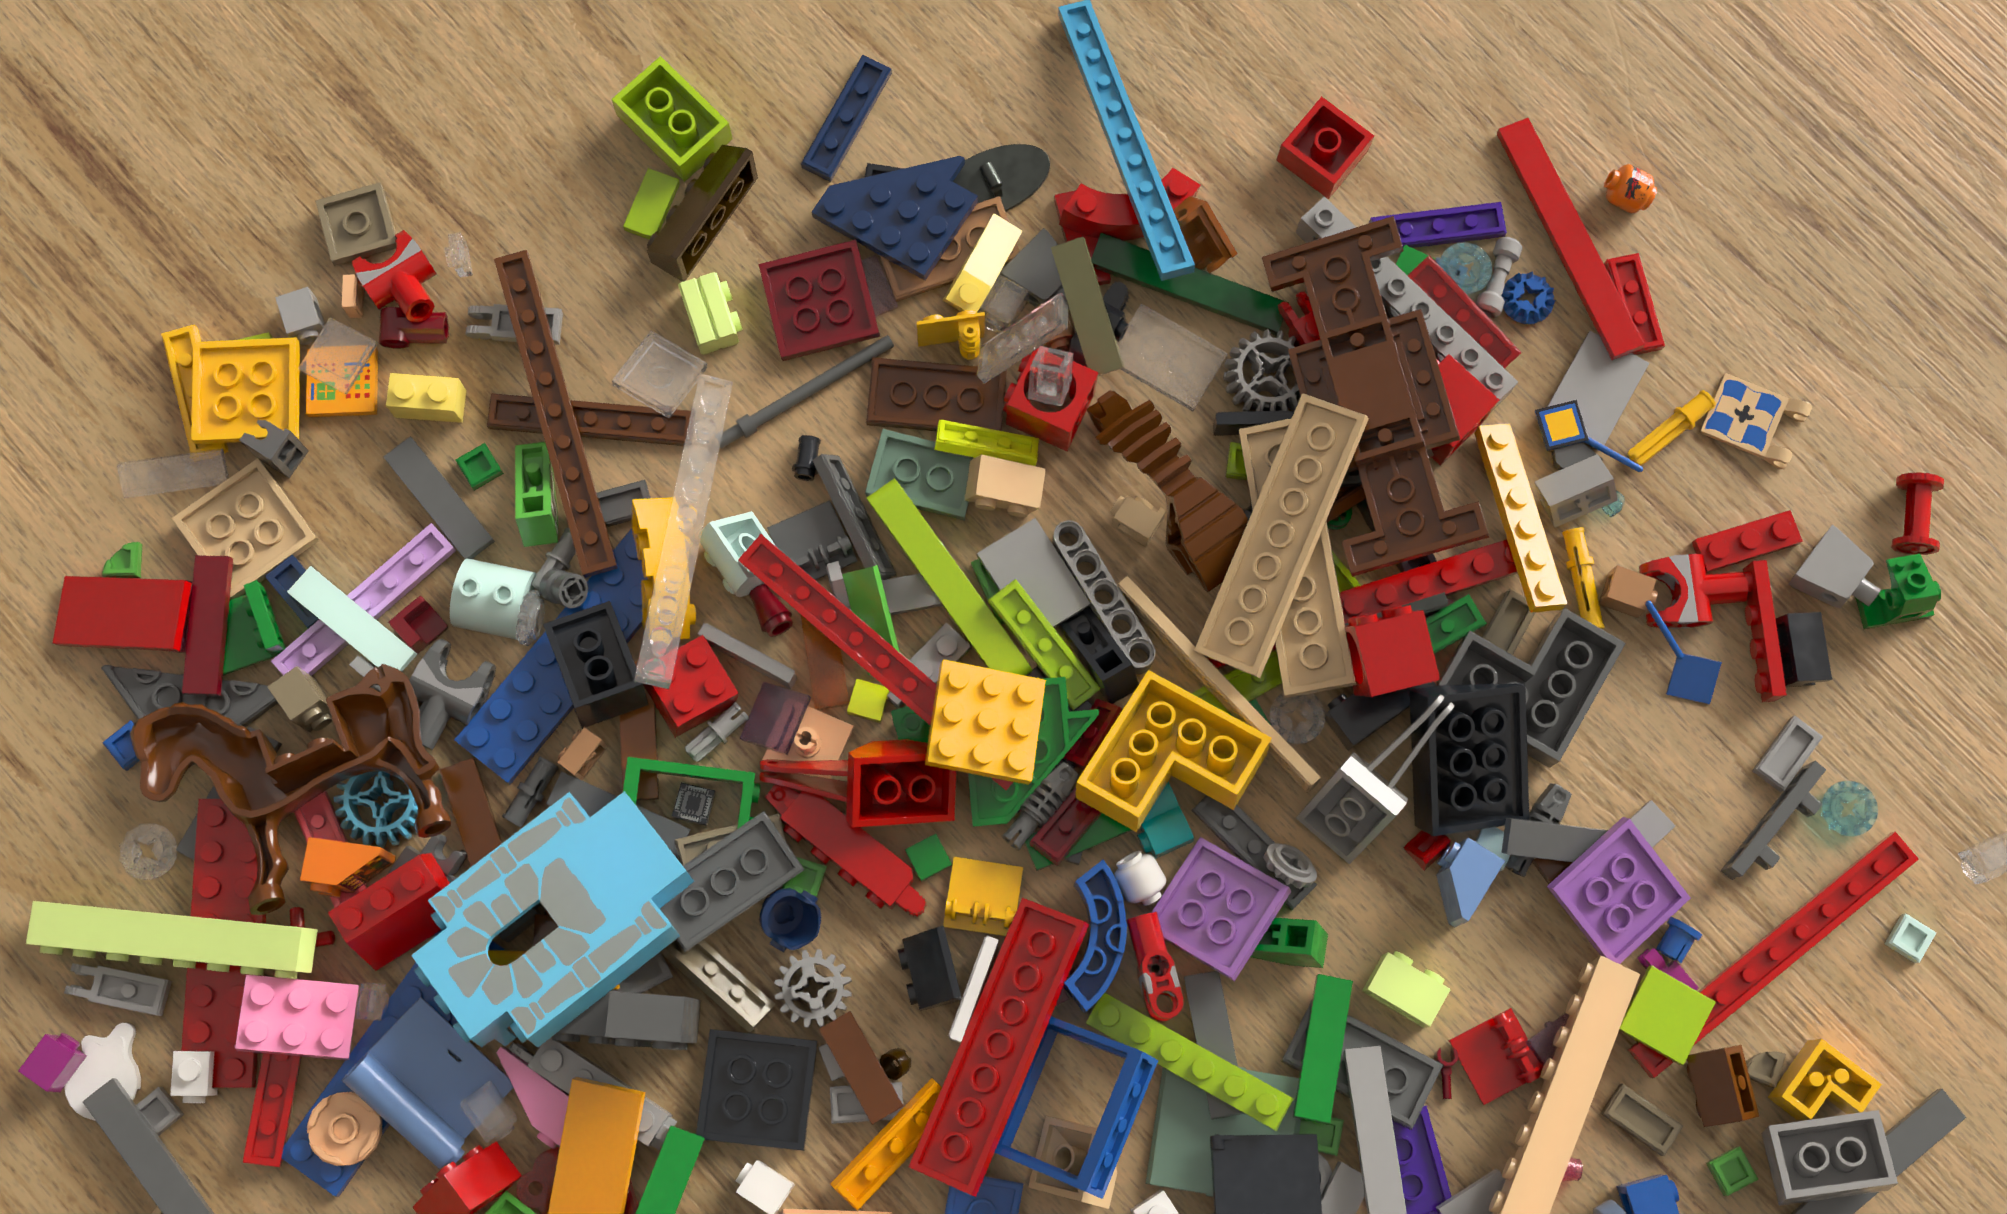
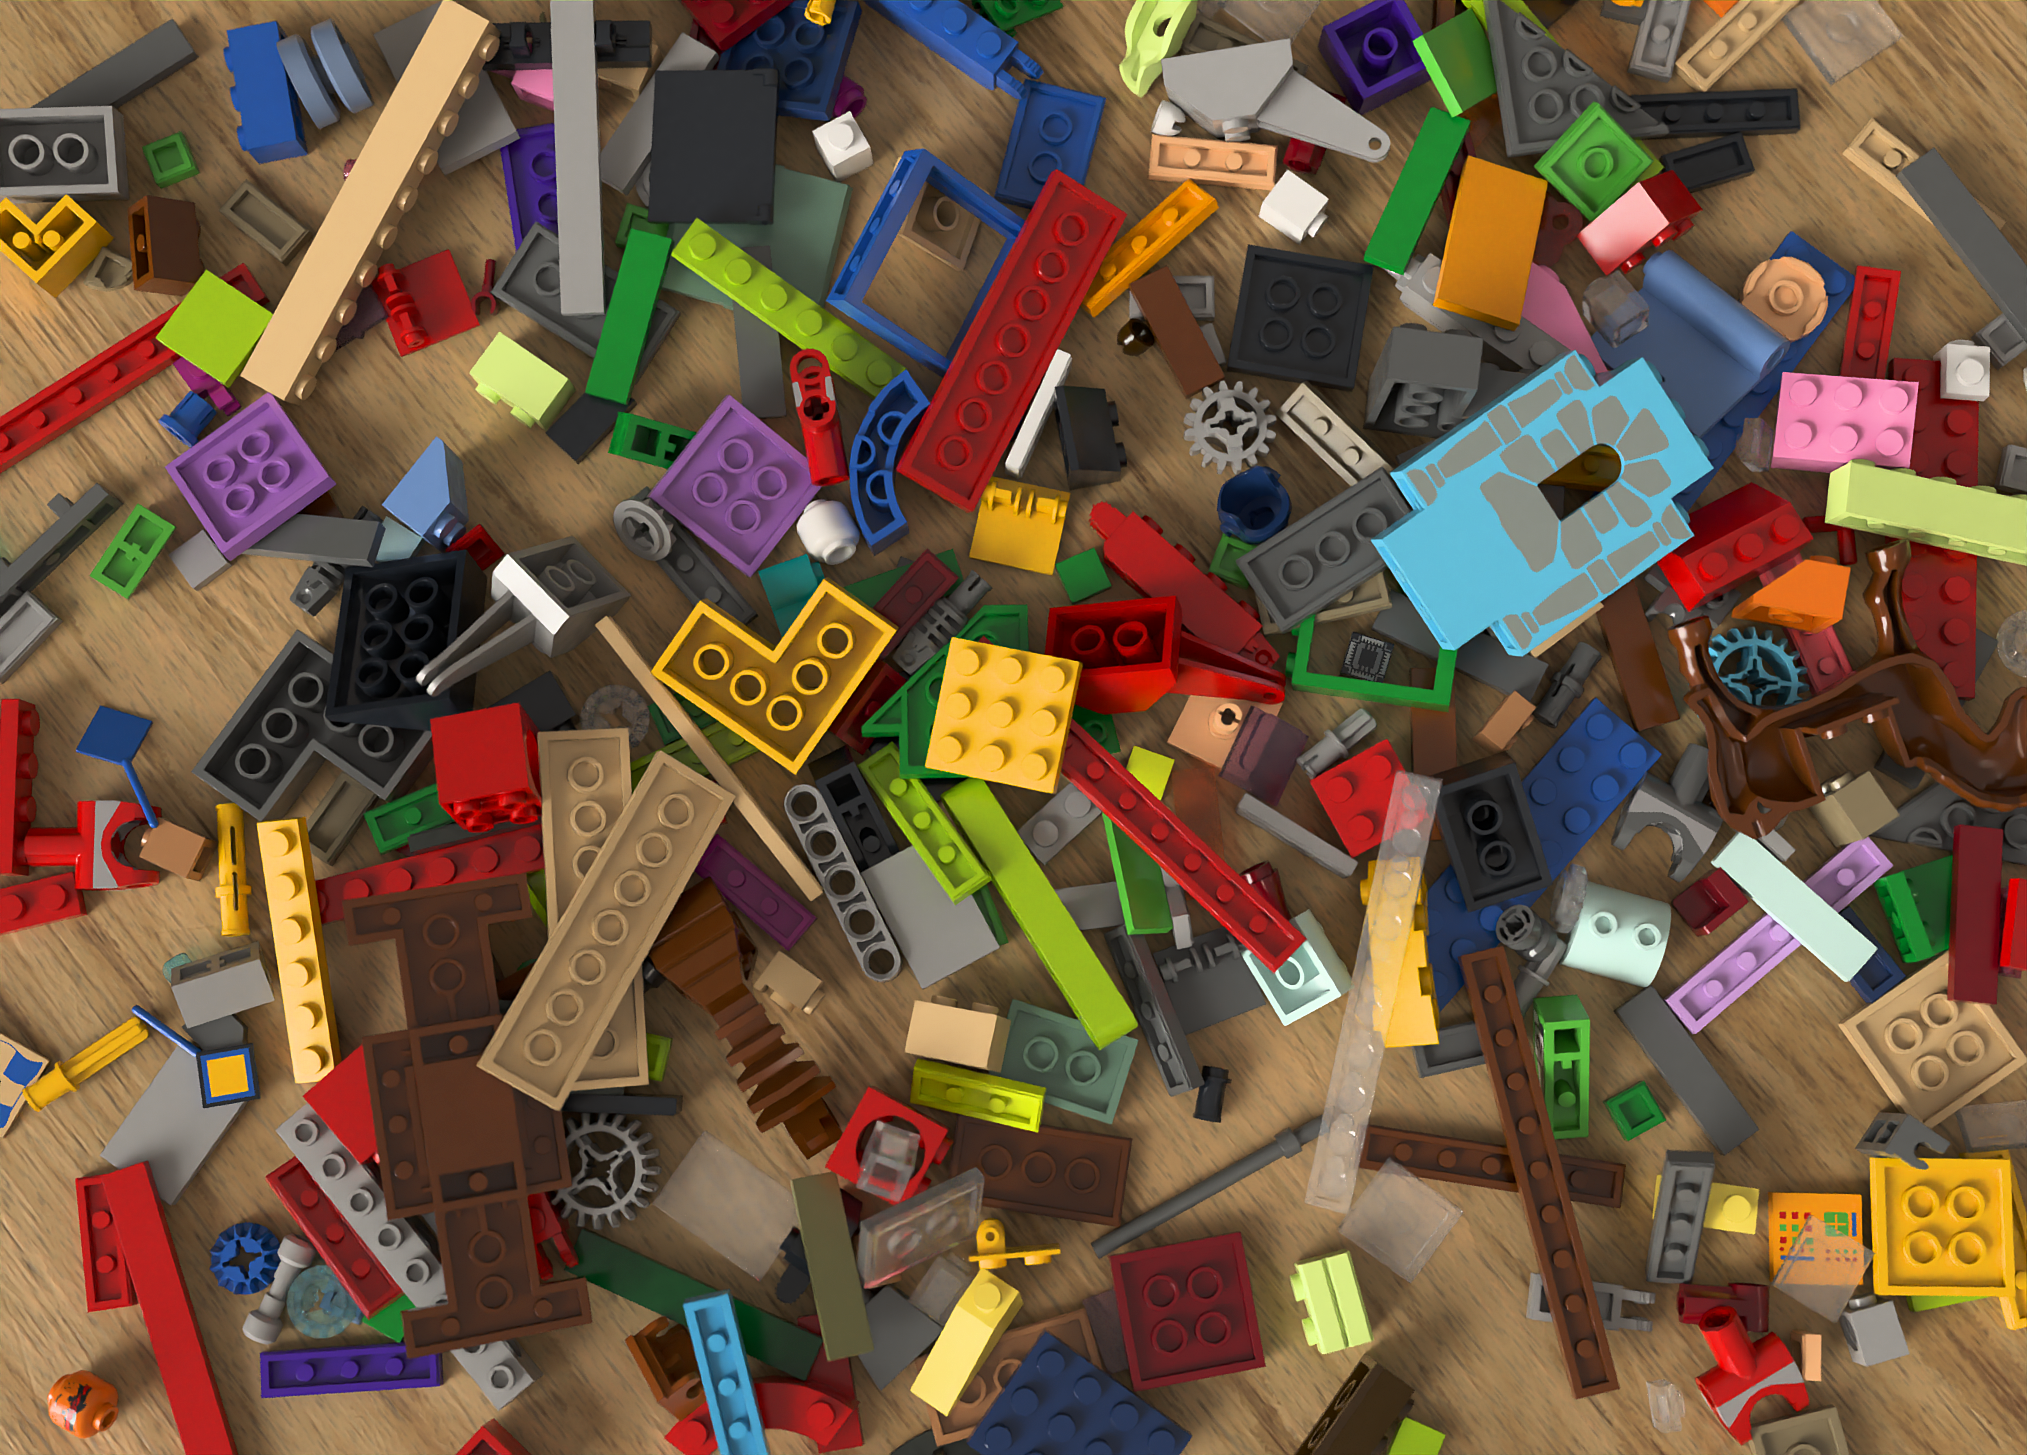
camera: 170 degrees left, 5 degrees up
(447, 378) = (1679, 1216): none -> dark grey tile
(1170, 587) = (755, 893): none -> magenta tile
(1350, 957) = (586, 425): none -> black tile
(1702, 823) = (133, 551): none -> bright green hinge

